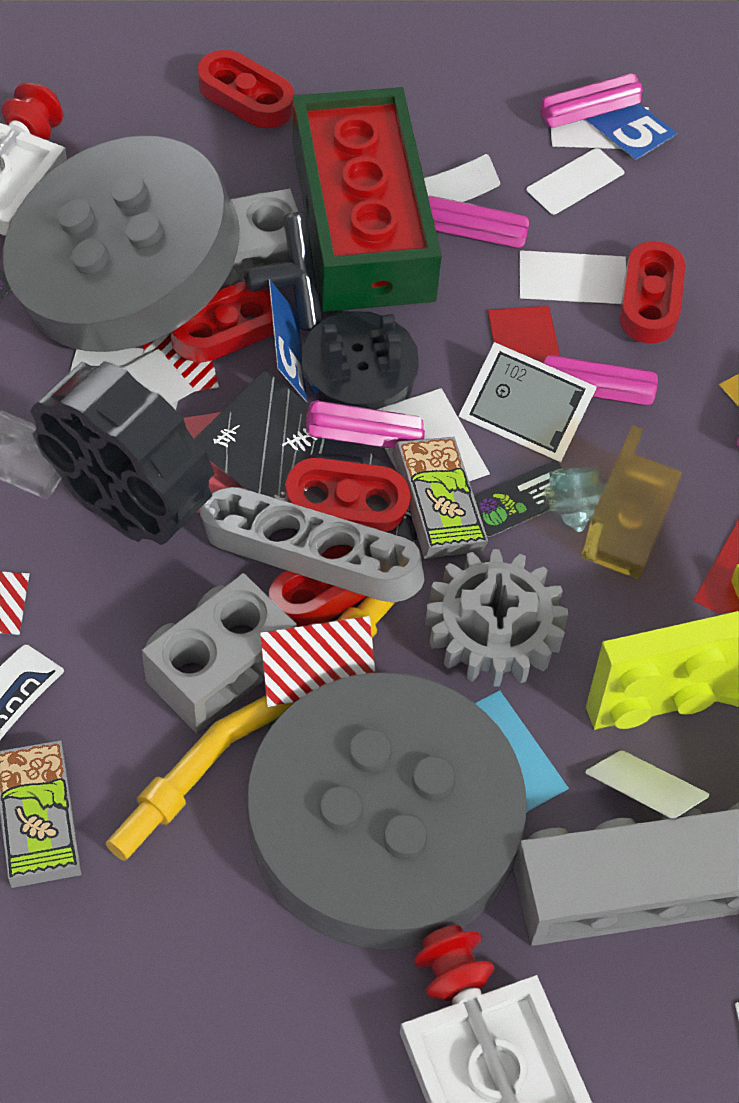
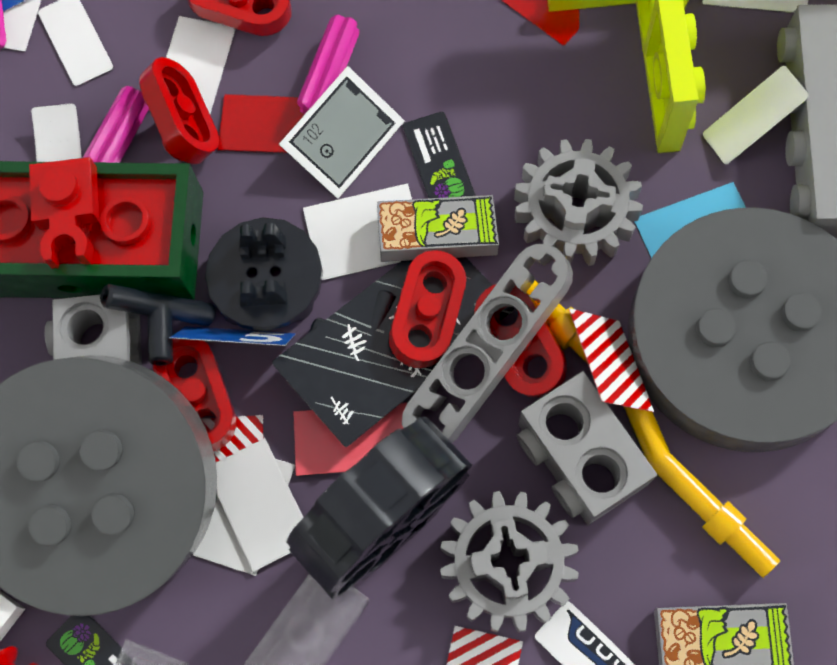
camera: 70 degrees left, 15 degrees up
(92, 597) = (536, 554): none -> light grey gear
(361, 425) = (354, 279): axle -> none
(376, 164) = (62, 201): none -> red plate
(508, 263) = (178, 111): none -> red plate
(574, 494) = (454, 109): clear light blue plate -> none
(630, 510) = (473, 70): clear yellow panel -> none

